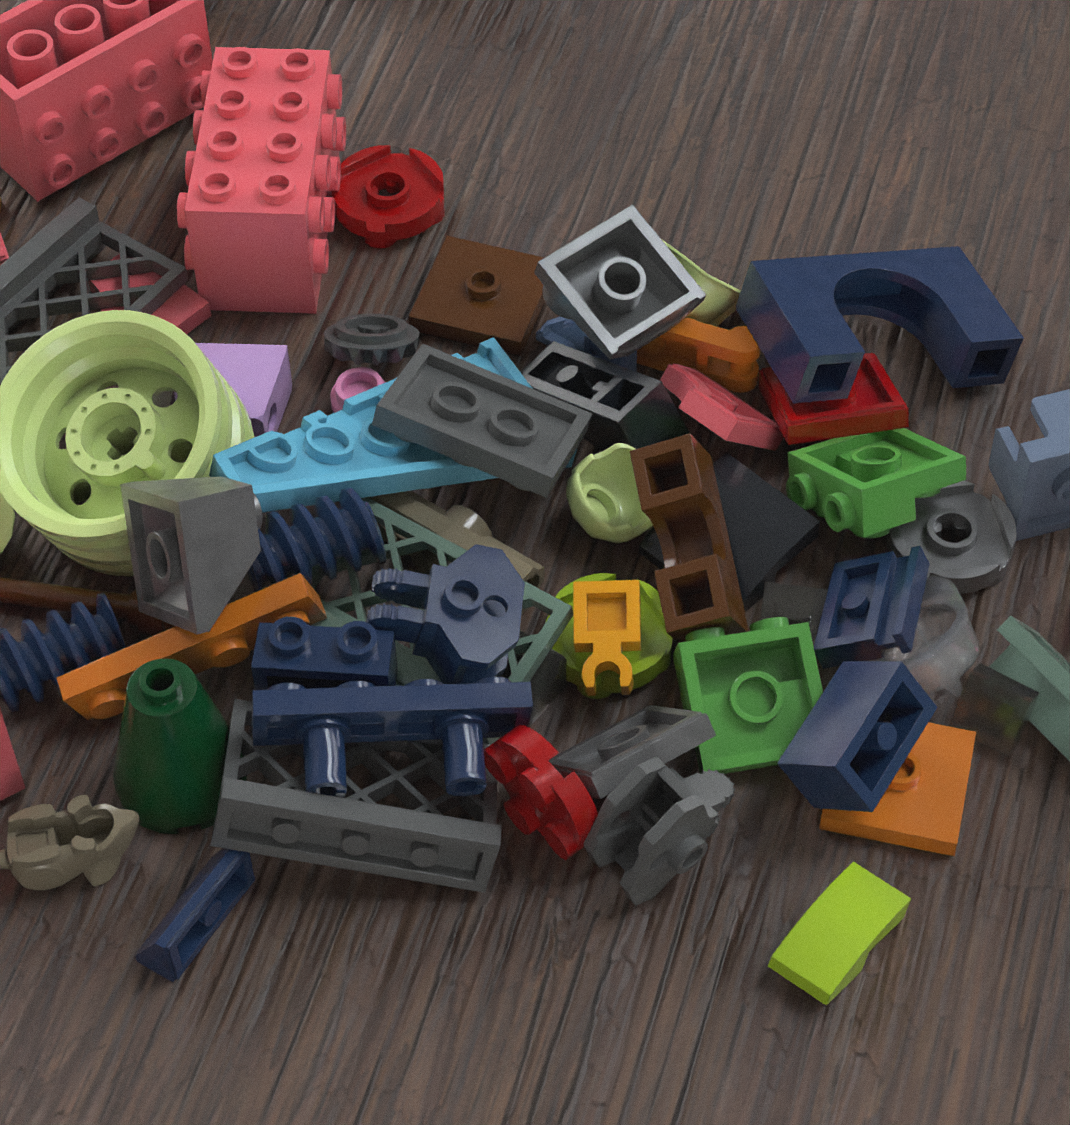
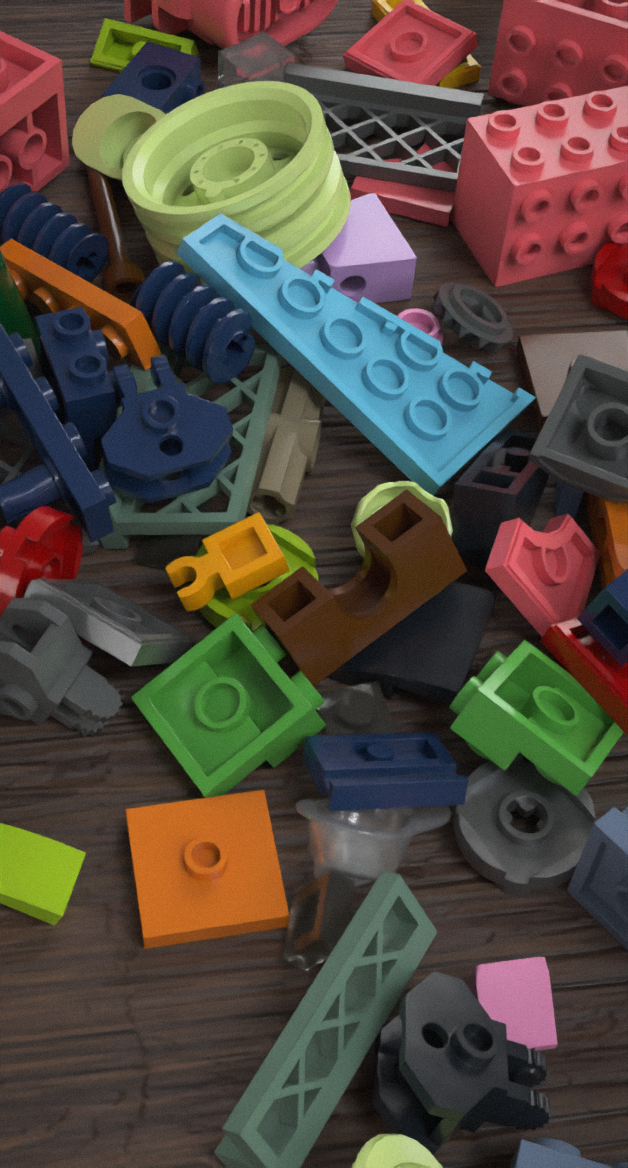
camera: 60 degrees right, 0 degrees up
(190, 545) = (125, 227): flat silver slope -> none
(482, 420) = (399, 393): dark grey plate -> none
(857, 735) = (194, 790): dark blue brick -> none

